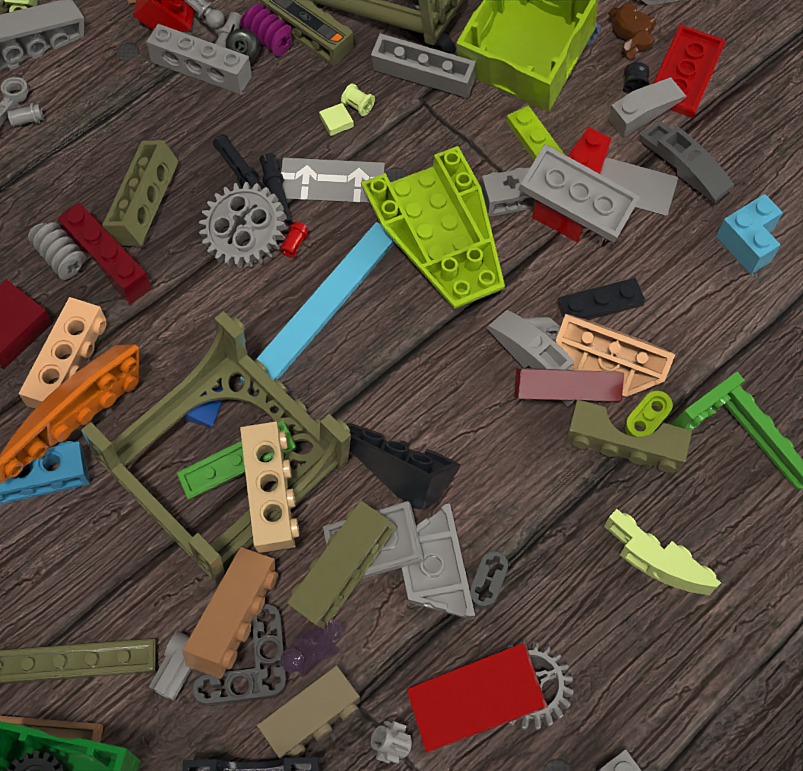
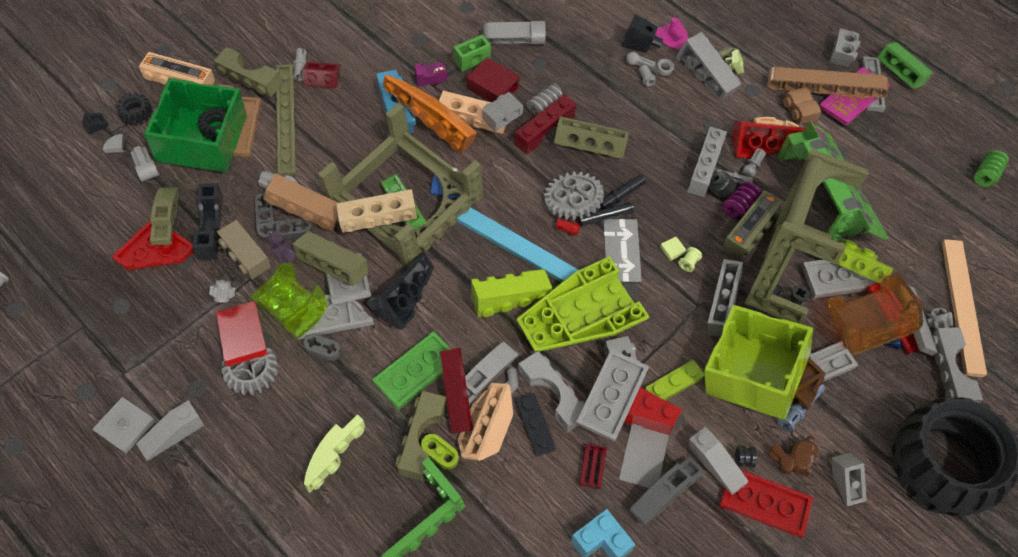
camera: 85 degrees right, 5 degrees down
(85, 301) = (502, 111): none -> light grey brick
(407, 316) = (509, 292): none -> lime wedge
(413, 630) = (290, 301): none -> clear neon green piece
(523, 448) = (412, 371): none -> bright green tile
(584, 258) = (538, 372): none -> light grey arch
(655, 236) = (595, 449): none -> dark red tile

